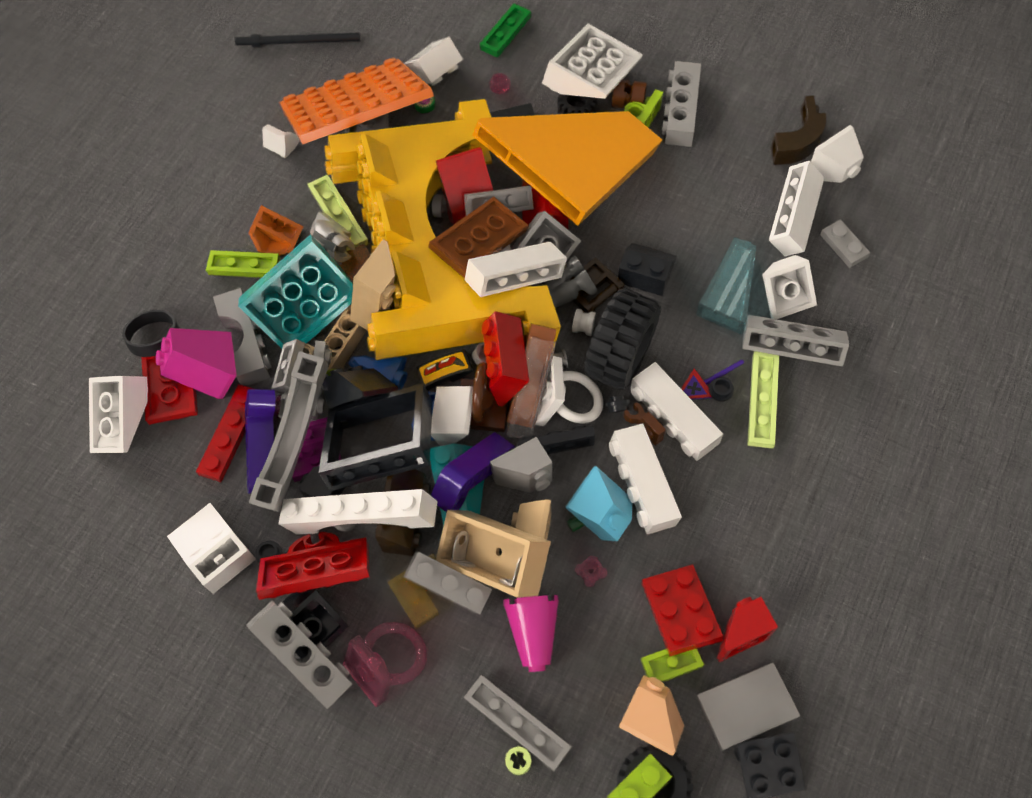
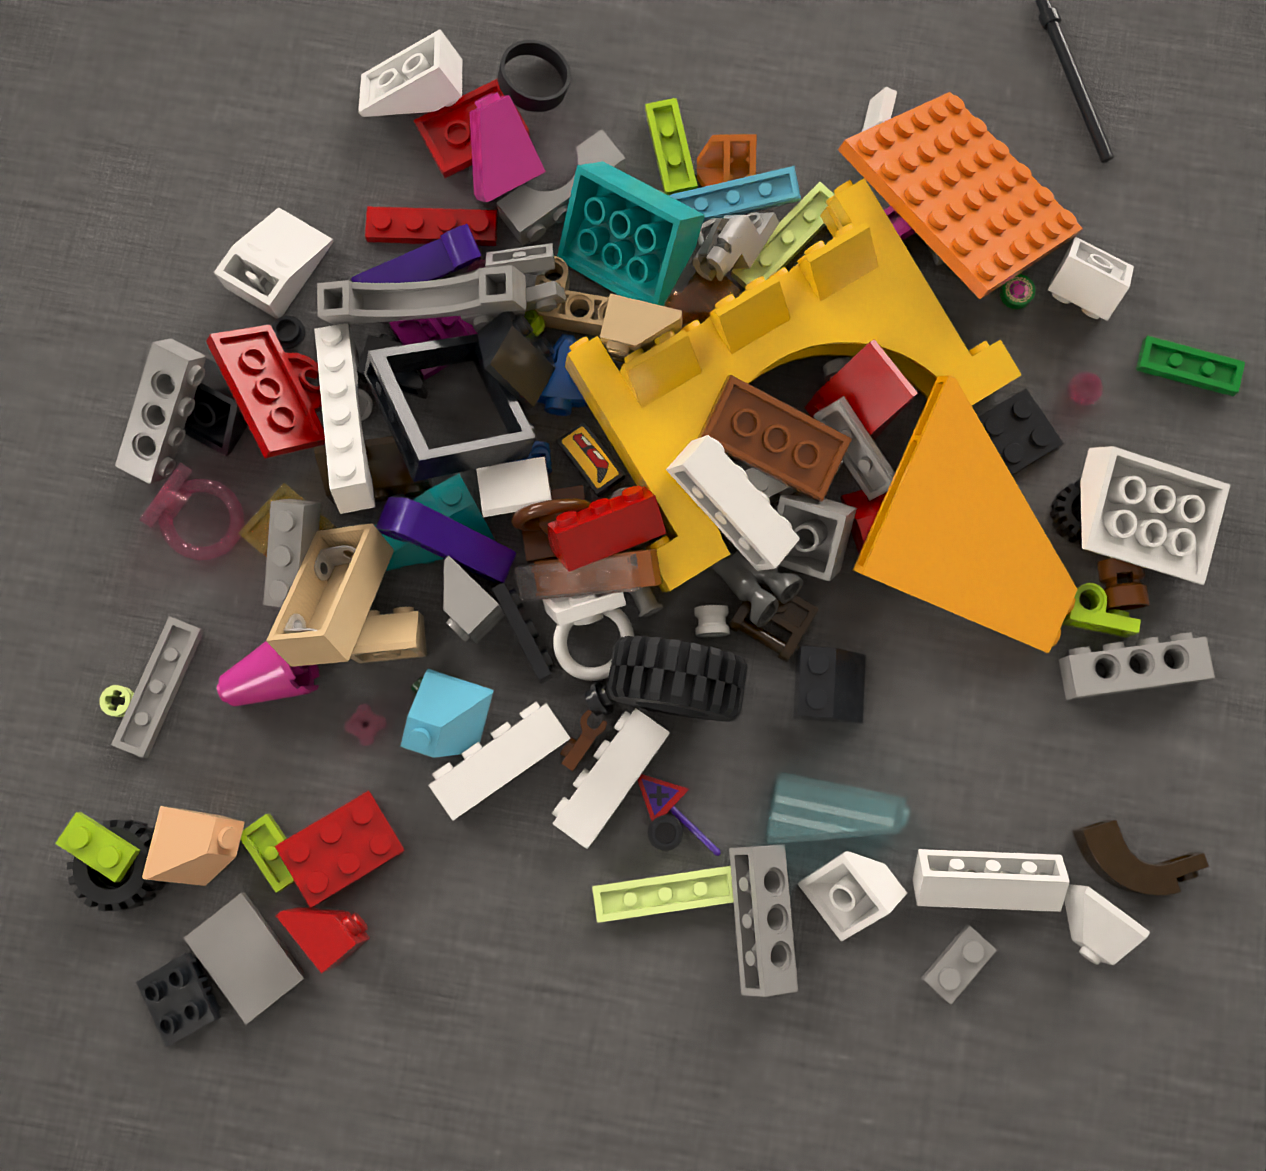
camera: 70 degrees right, 15 degrees up
(298, 221) = (743, 194): none -> medium azure tile

